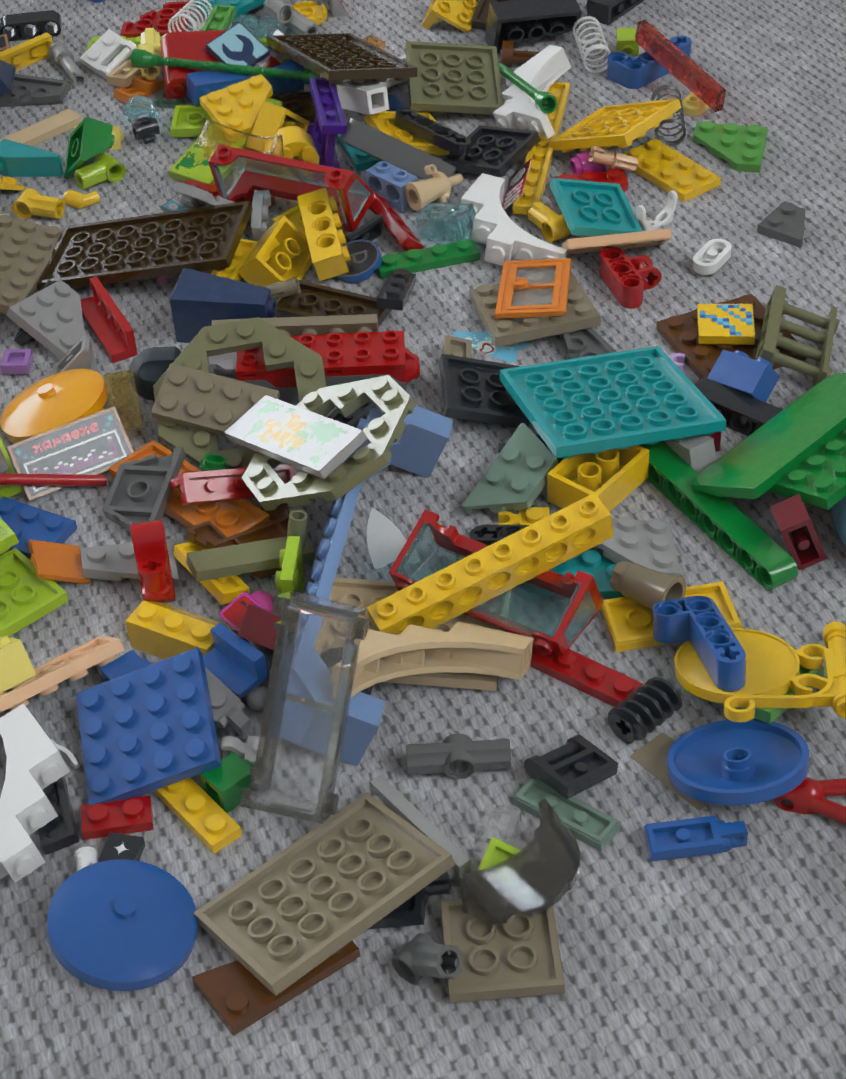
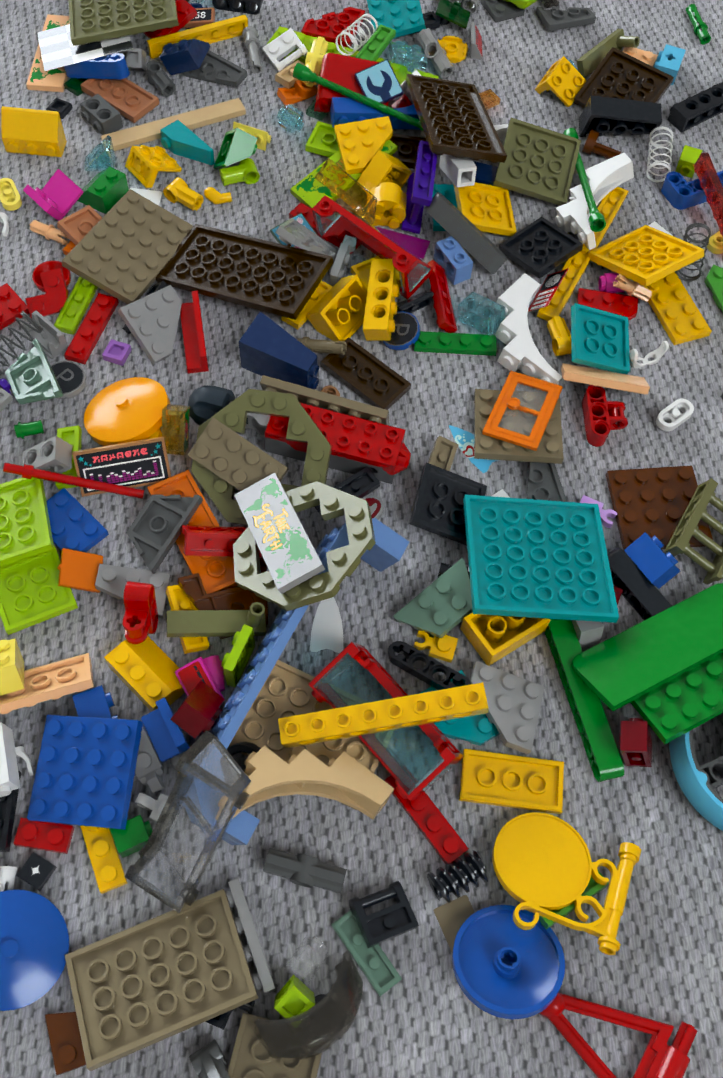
camera: 10 degrees right, 20 degrees up
(78, 357) = (159, 369): light grey slope -> none
(145, 128) = (287, 138): black gear -> none
(213, 462) = (221, 515): green plate -> none
(396, 290) = (418, 373): black plate -> none
(428, 190) = (476, 276): tan piece -> none
(432, 132) = (514, 233): black beam -> none
(646, 584) = (501, 758): dark tan plant -> none
(693, 837) = (449, 1016): blue hinge -> none
(703, 625) = (525, 838): blue beam -> none
(726, 324) = (659, 496): yellow tile -> none

